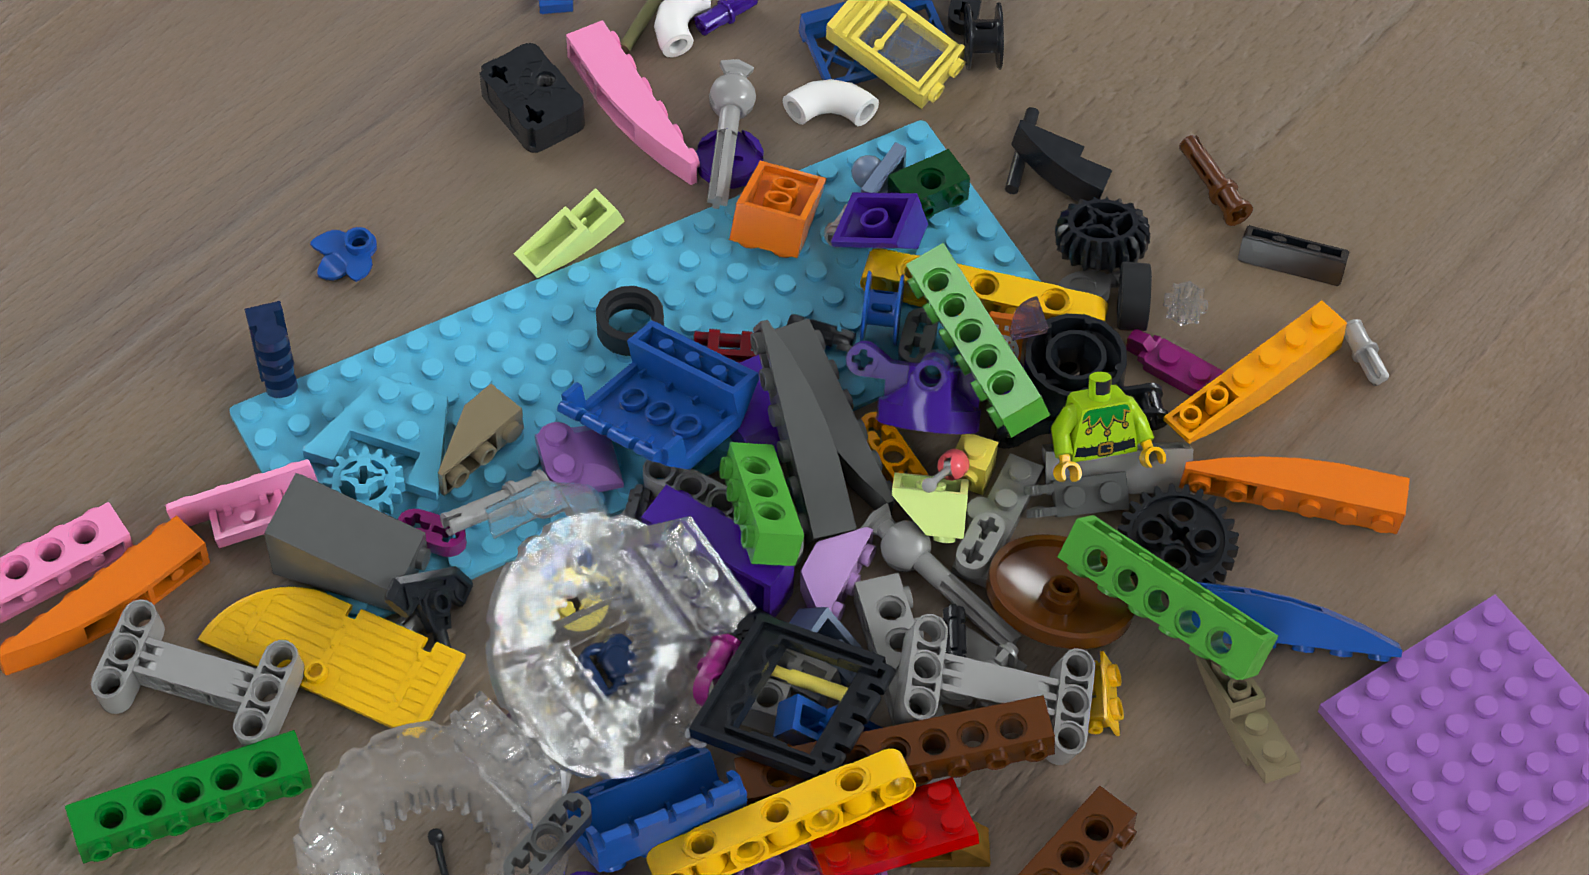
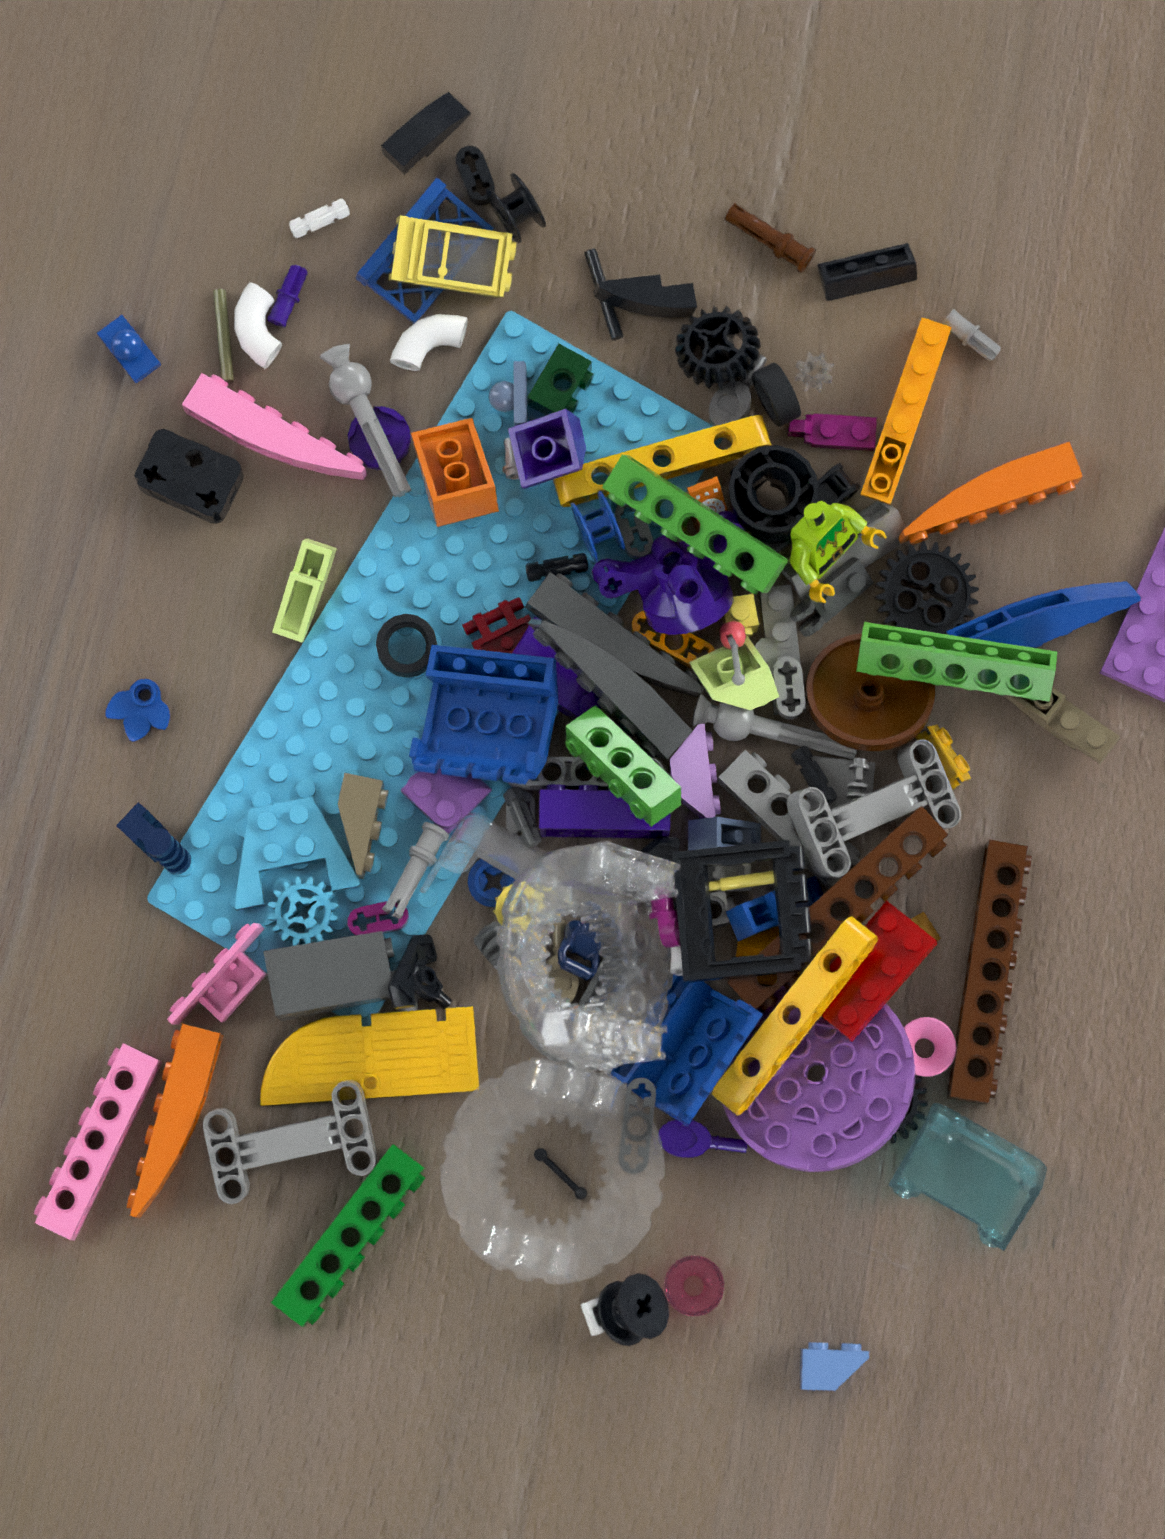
camera: 30 degrees left, 25 degrees up
(1028, 320) = (722, 481): tile -> none

